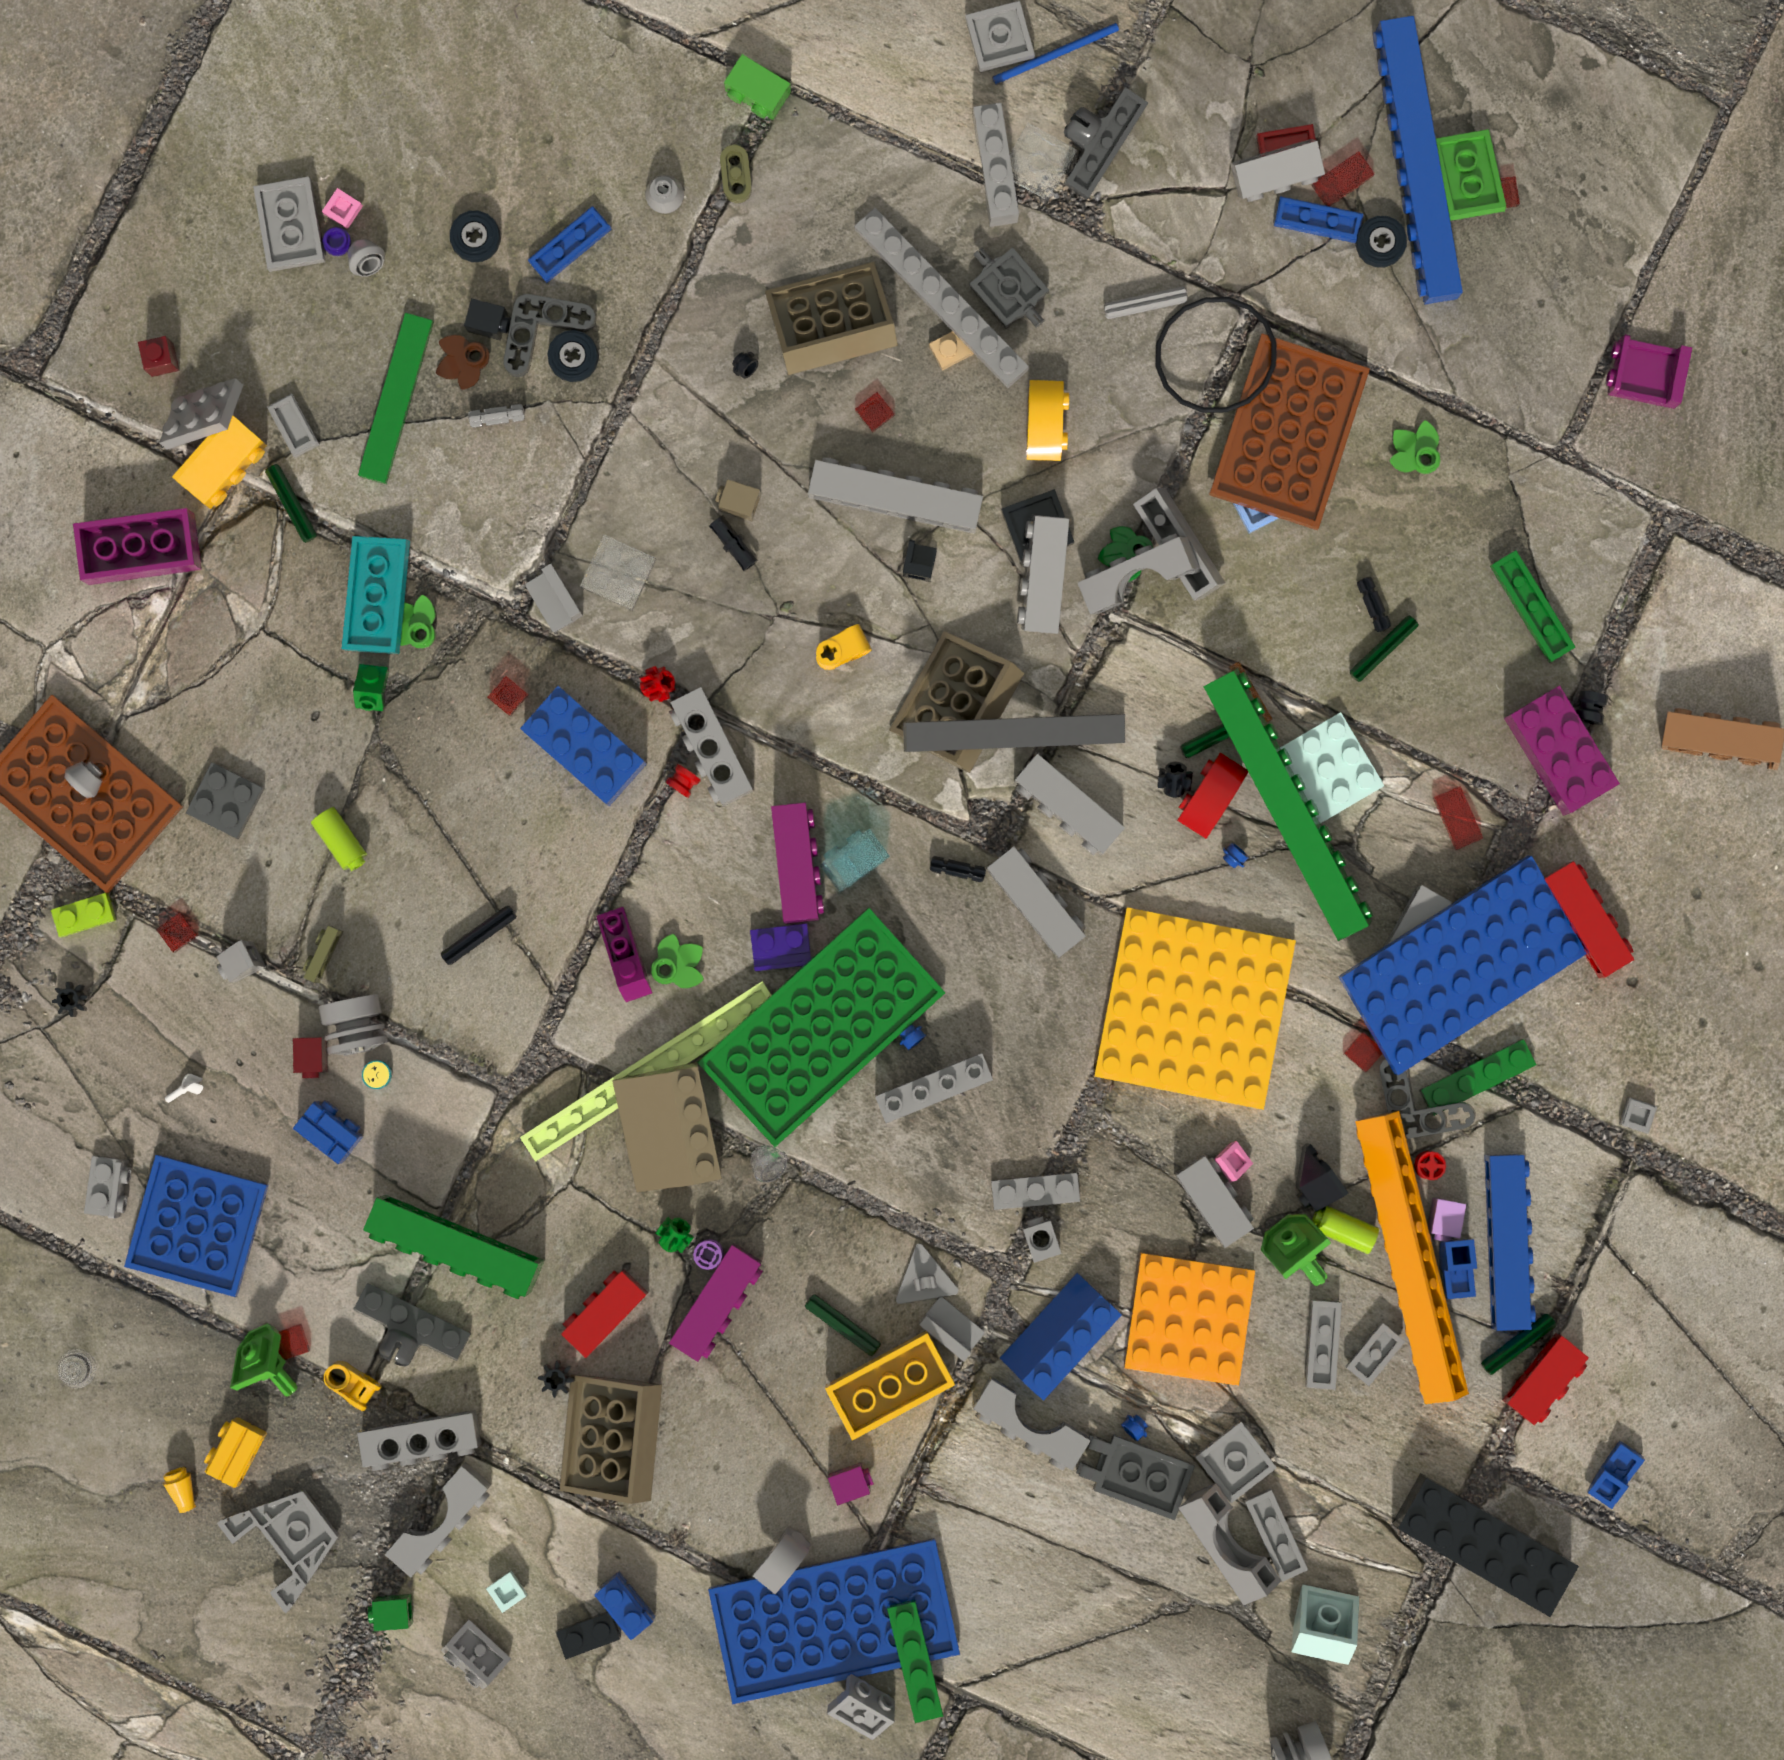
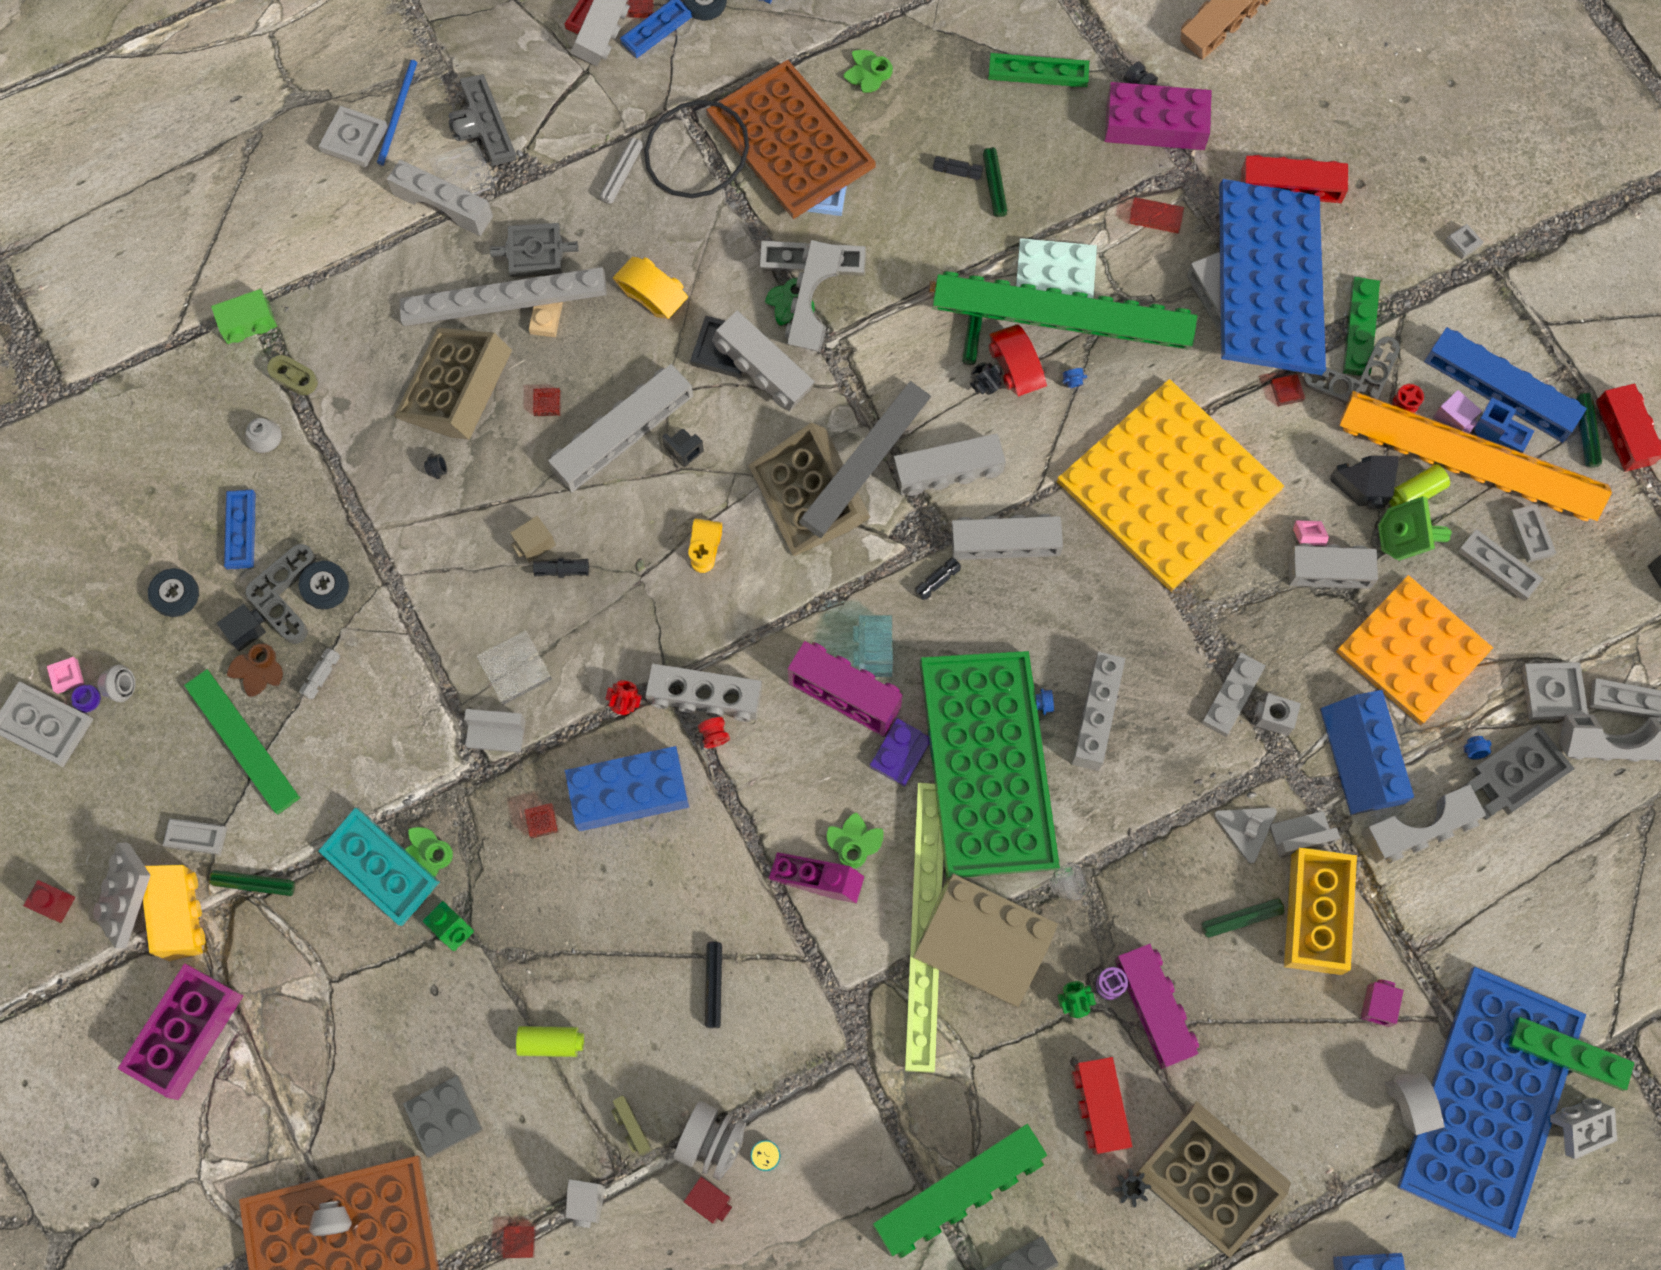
camera: 55 degrees left, 15 degrees down
(328, 1131) = (783, 1232): blue brick -> none

